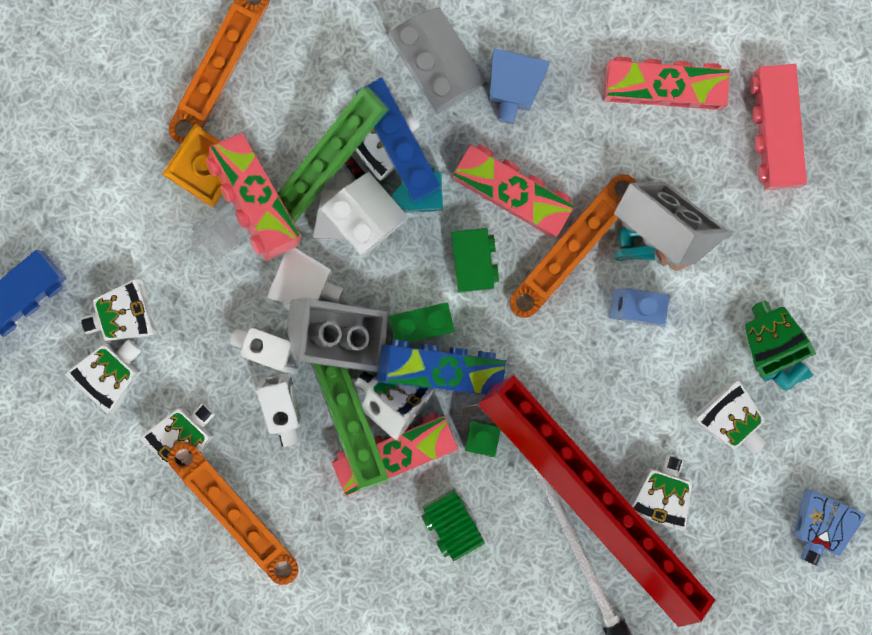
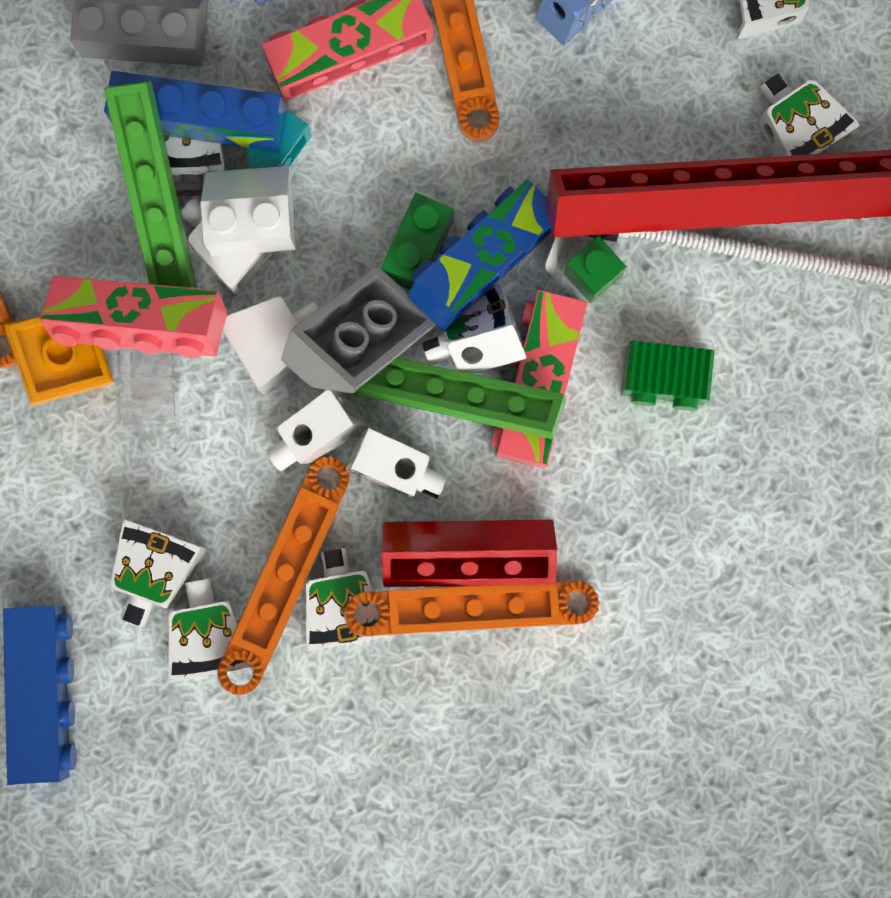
camera: 55 degrees left, 5 degrees down
(172, 392) = (283, 576): none -> orange plate
(263, 488) = (469, 553): none -> red brick
(473, 260) = (390, 138): green brick -> none

